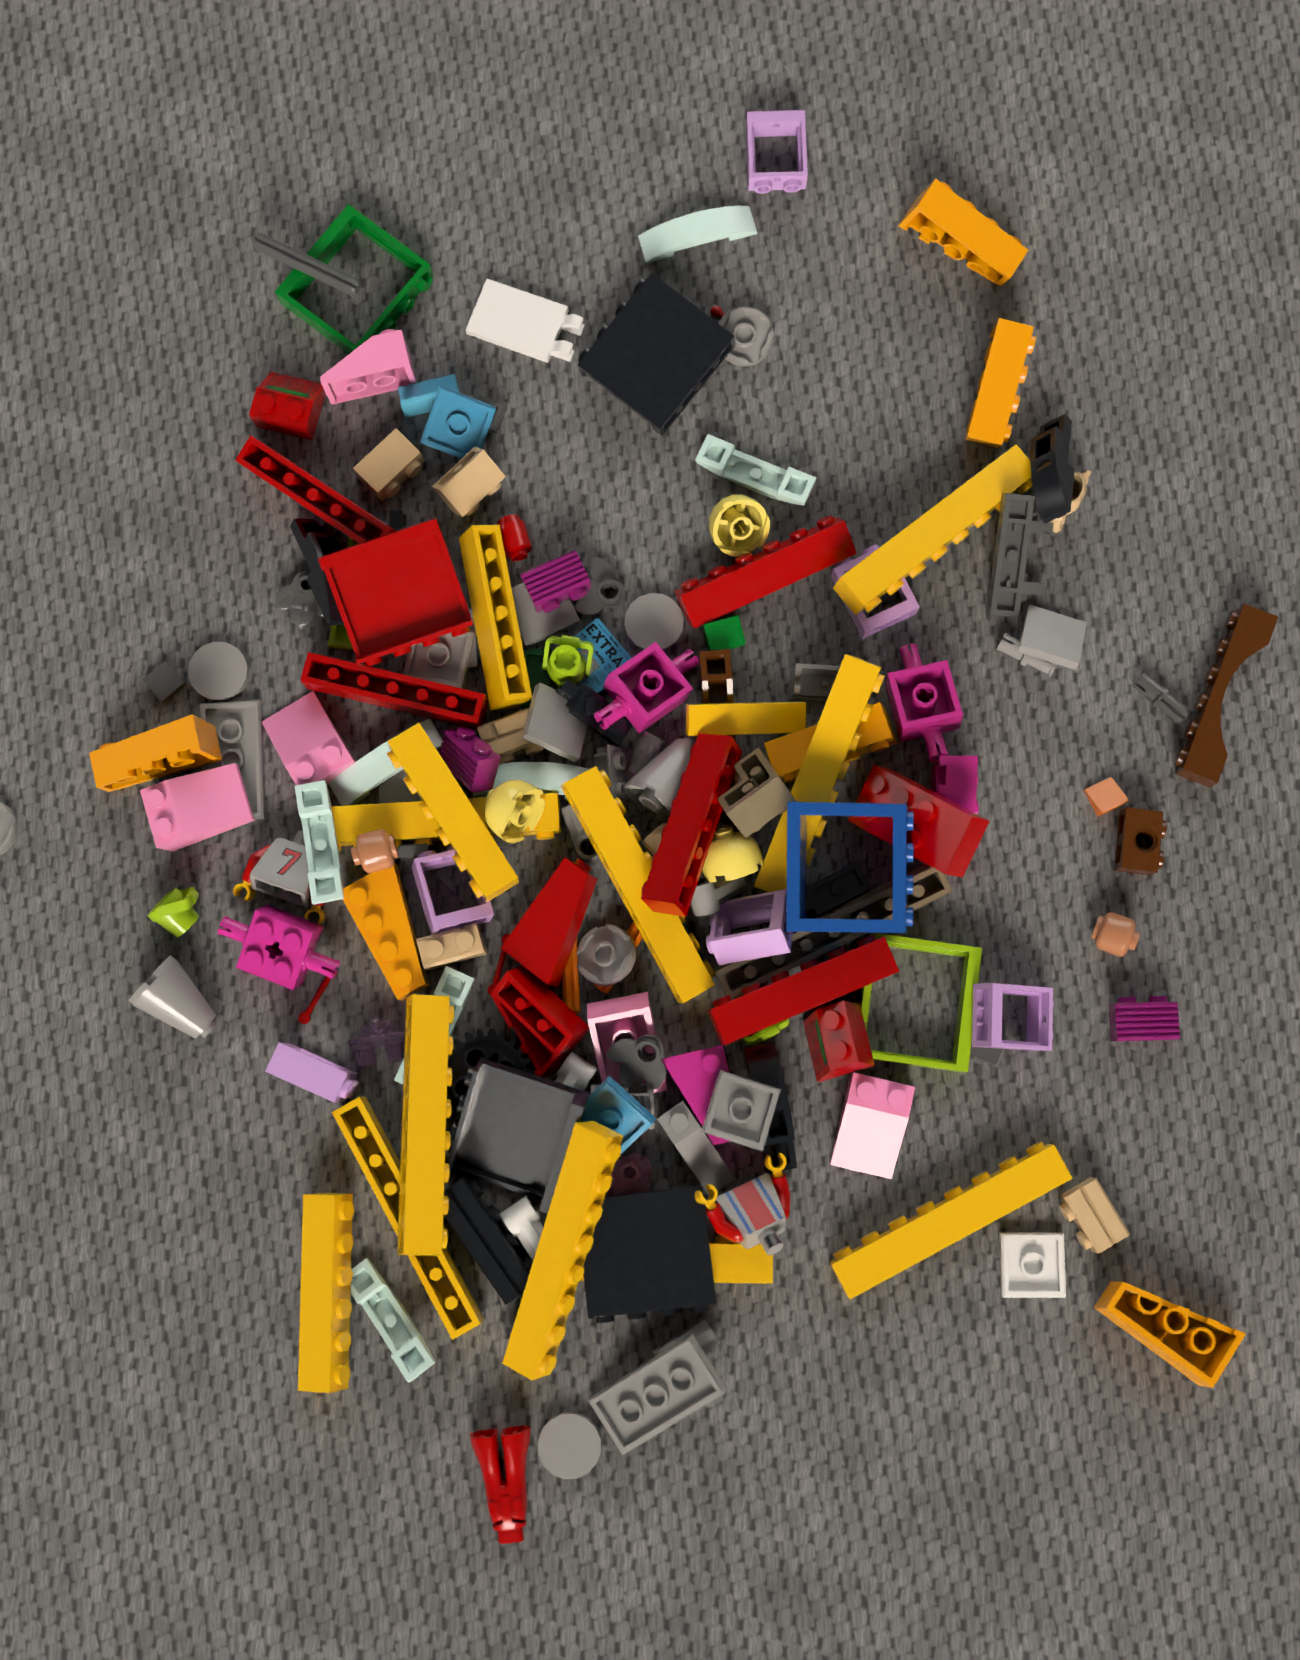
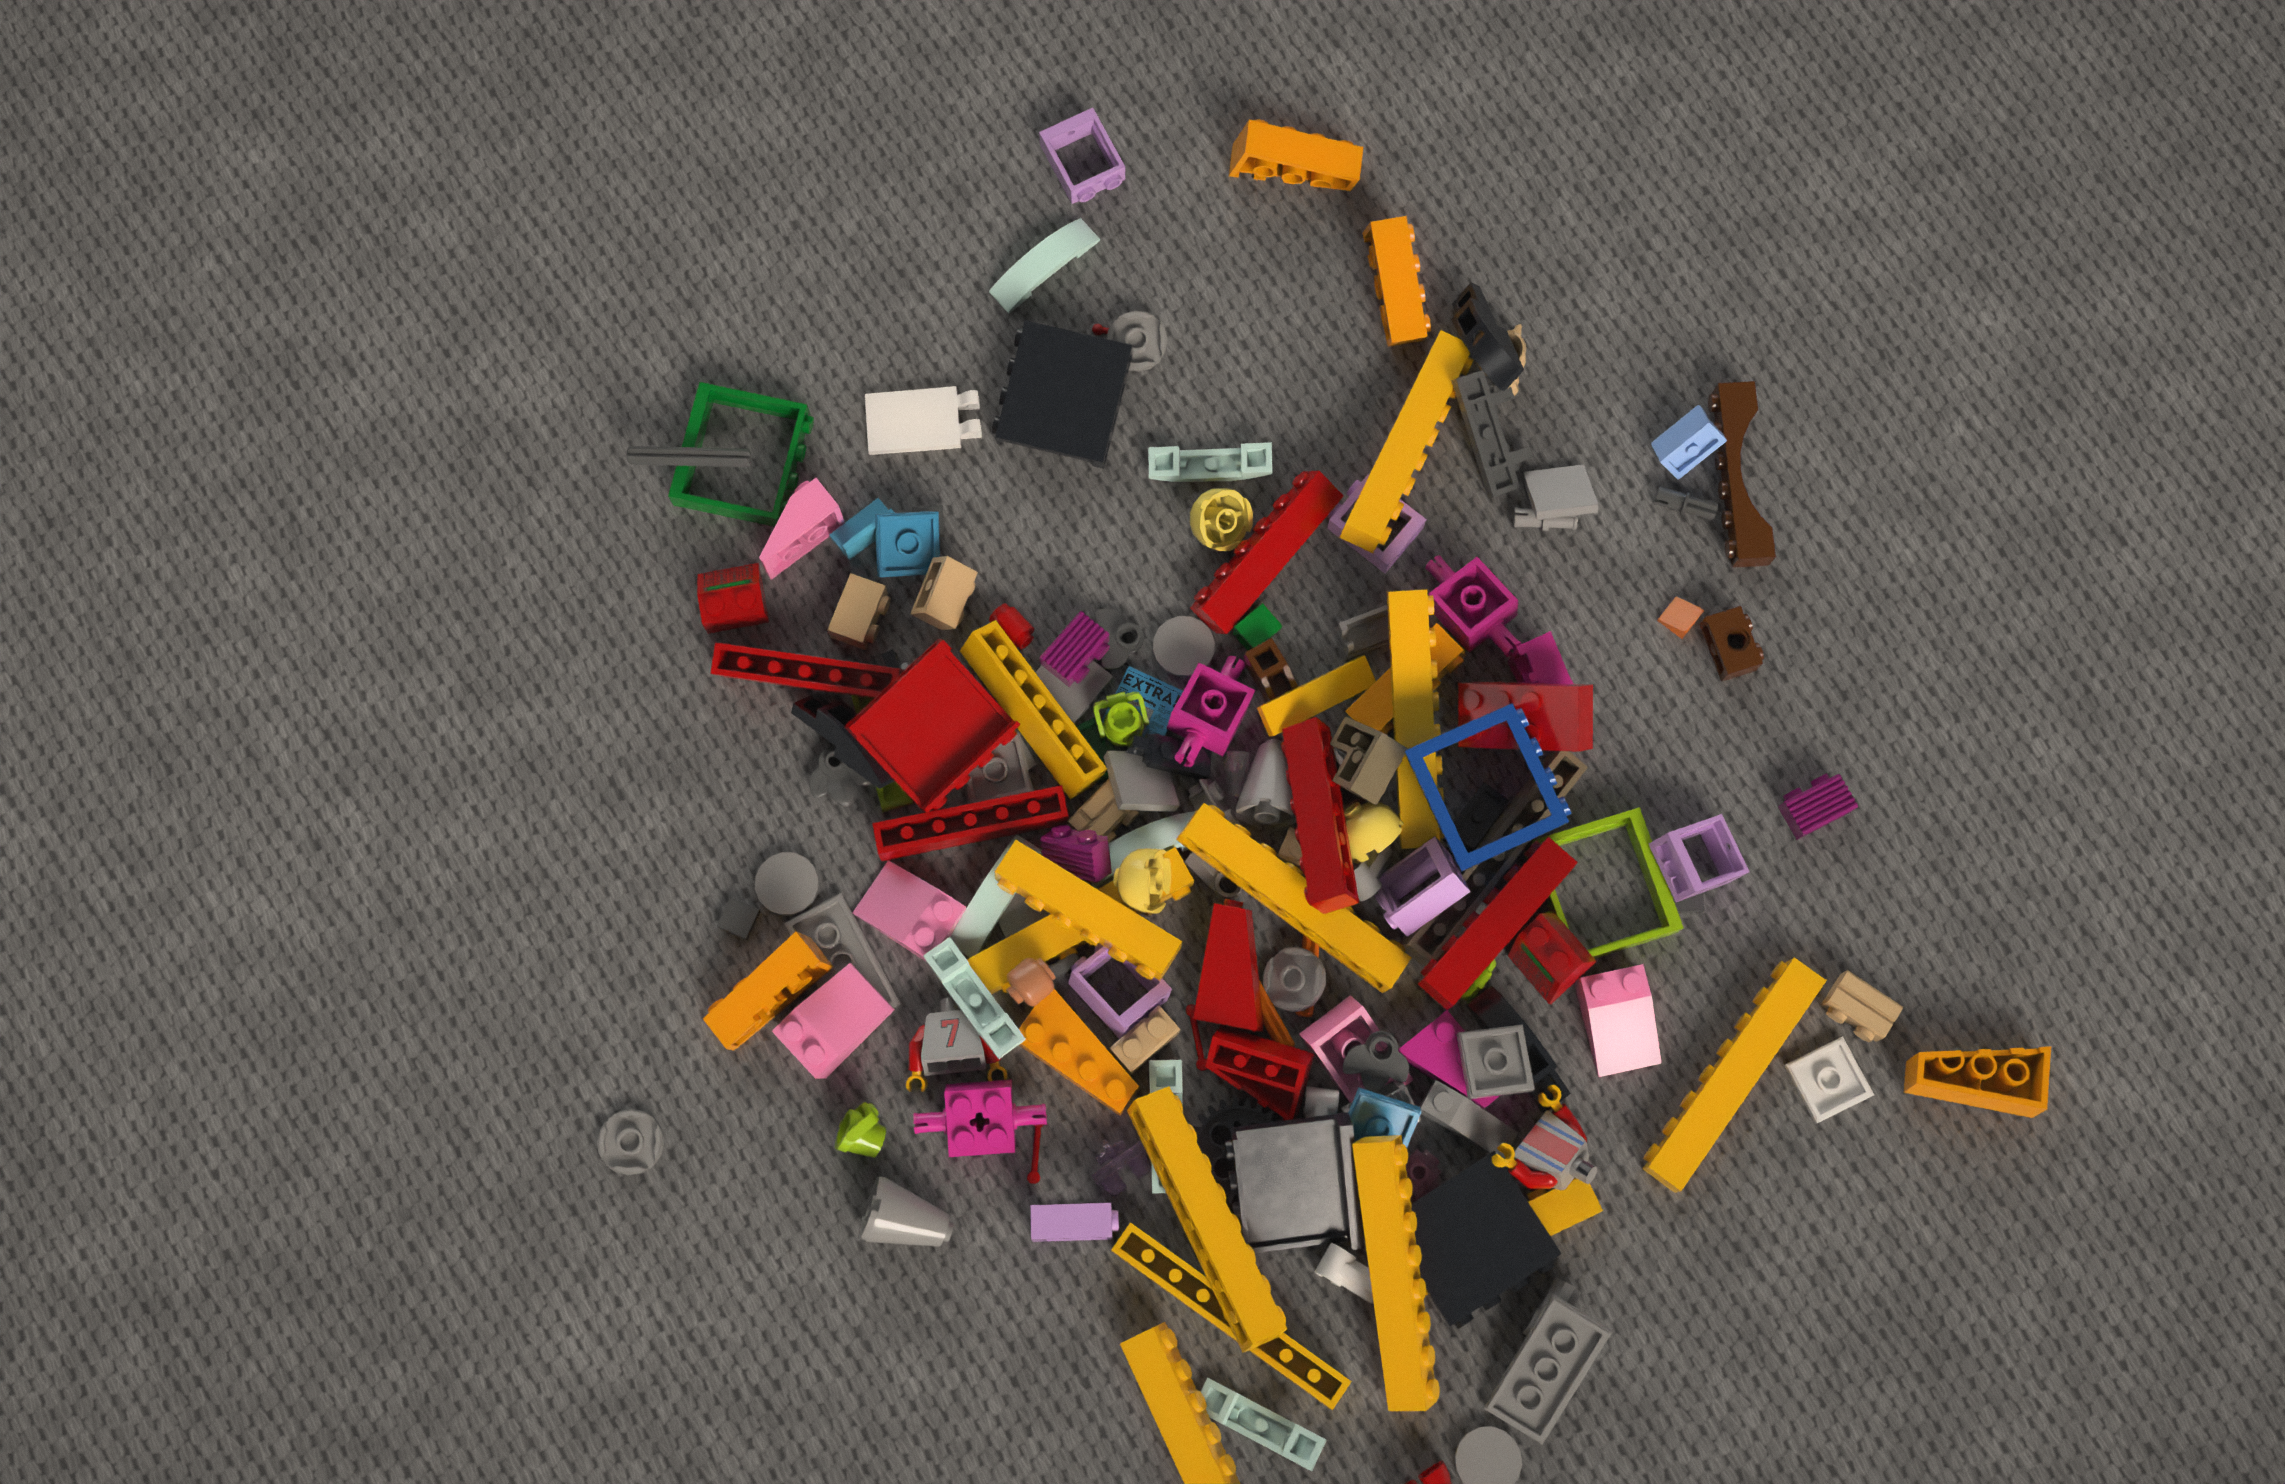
camera: 30 degrees left, 5 degrees down
(486, 1239) = (1318, 1305): black brick -> none
(1115, 934) = (1753, 738): nougat head -> none
(1190, 644) = (1688, 442): none -> light blue panel

